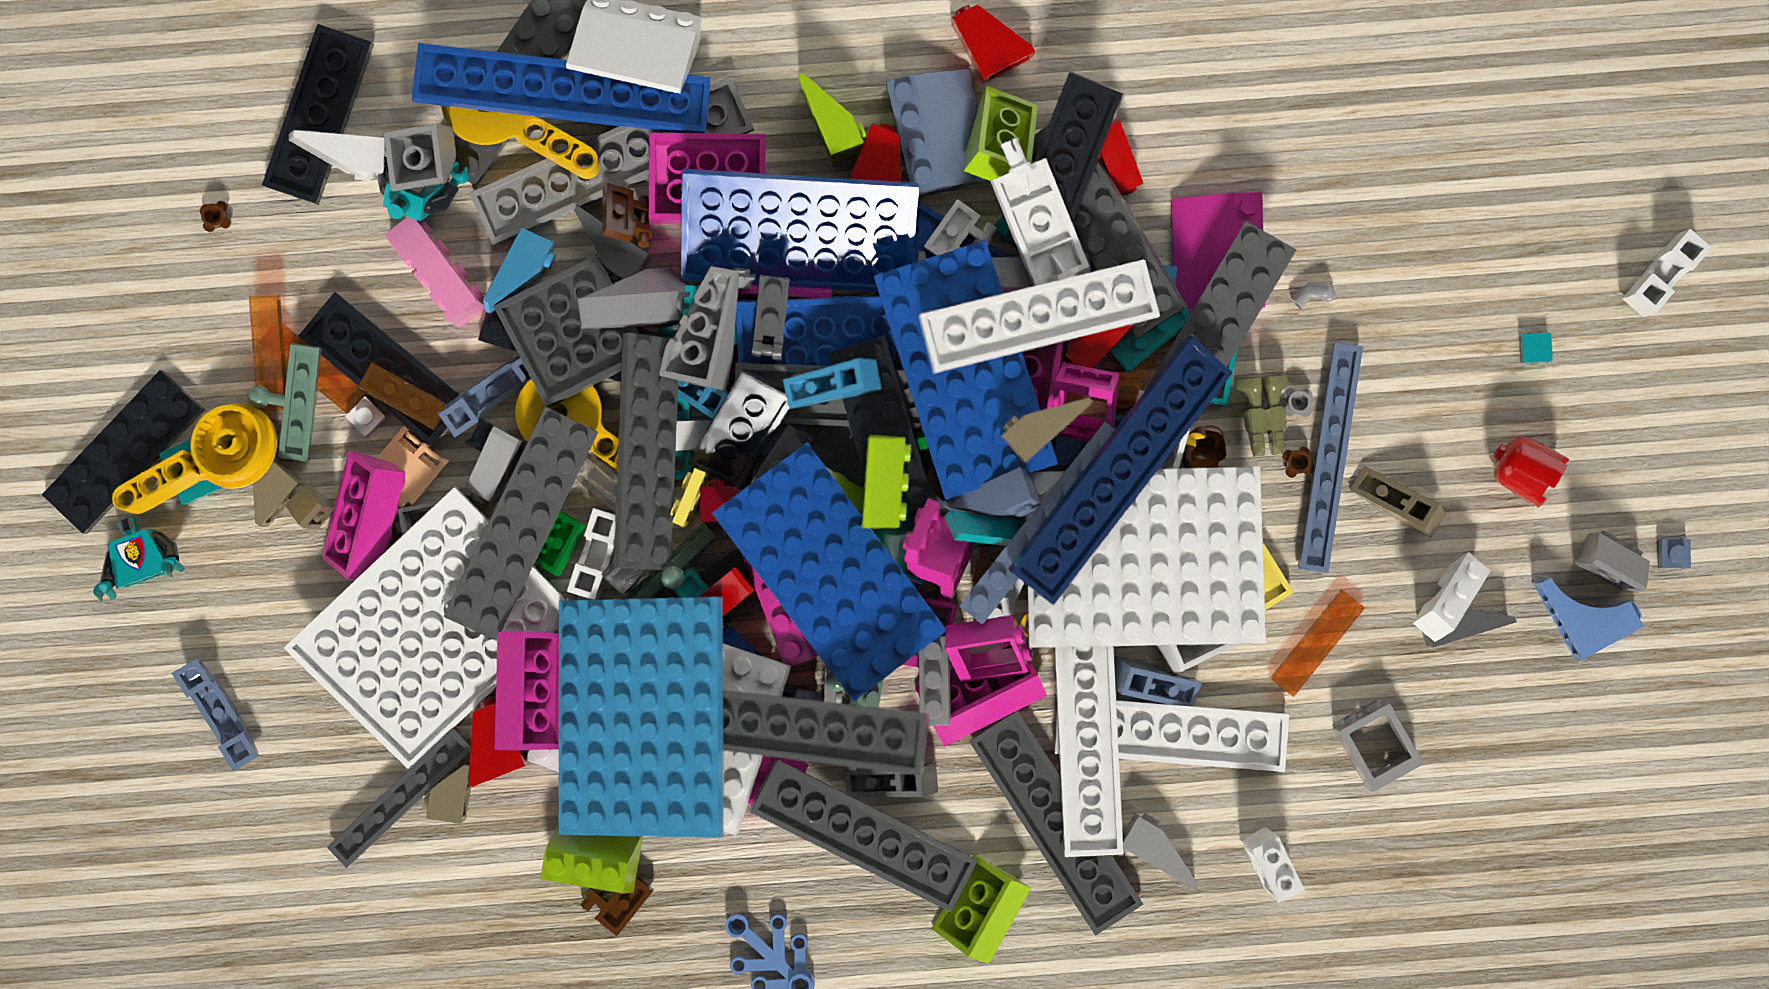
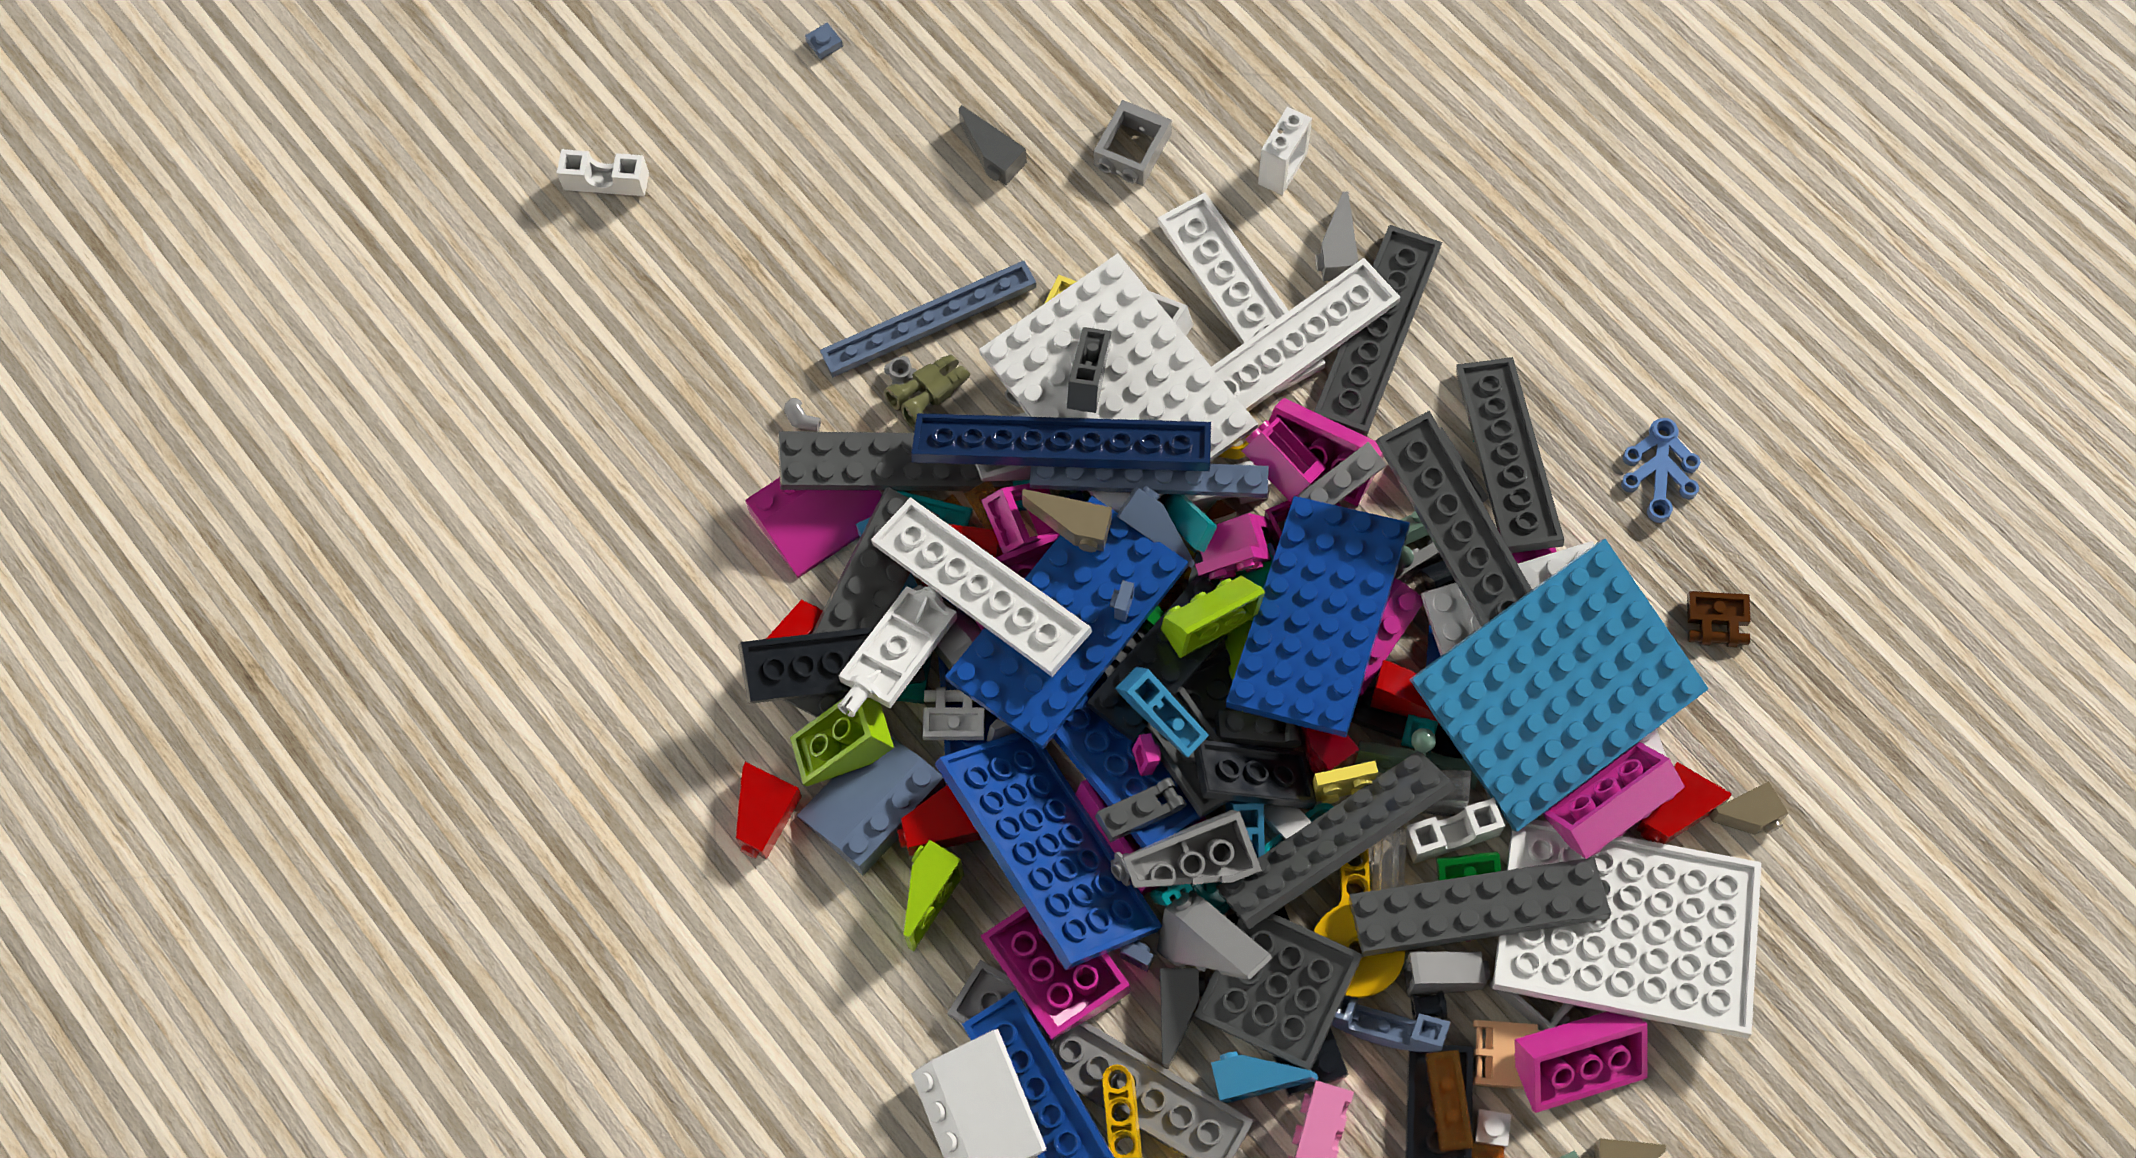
camera: 125 degrees left, 20 degrees down
(218, 712) = (1854, 1065): sand blue slope -> none
(309, 507) = (1612, 1113): dark tan slope -> none
(400, 797) = (1792, 853): dark grey plate -> none
(593, 861) = (1711, 651): lime slope -> none
(619, 212) = (1140, 1013): reddish brown plate -> none
(671, 249) = (1137, 954): none -> sand blue plate
(811, 354) = (1146, 754): none -> dark pink plate
(944, 416) = (1122, 600): none -> sand blue plate
(982, 911) = (1492, 334): lime slope -> none
(1153, 683) = (1211, 328): sand blue slope -> none
(1171, 539) = (1088, 370): none -> dark grey slope
(1204, 448) = (995, 405): reddish brown hair -> none
(1305, 462) = (947, 333): reddish brown plate -> none
(1317, 643) = (1085, 237): clear orange tile -> none
(1398, 501) = (927, 249): dark tan slope -> none
(1458, 590) = (993, 150): white arch -> none
(1528, 468) = (833, 169): red cylinder -> none
(1536, 348) = (728, 230): teal tile -> none
(1587, 627) = (926, 60): medium blue arch -> none
(1613, 562) = (862, 71): light grey slope -> none

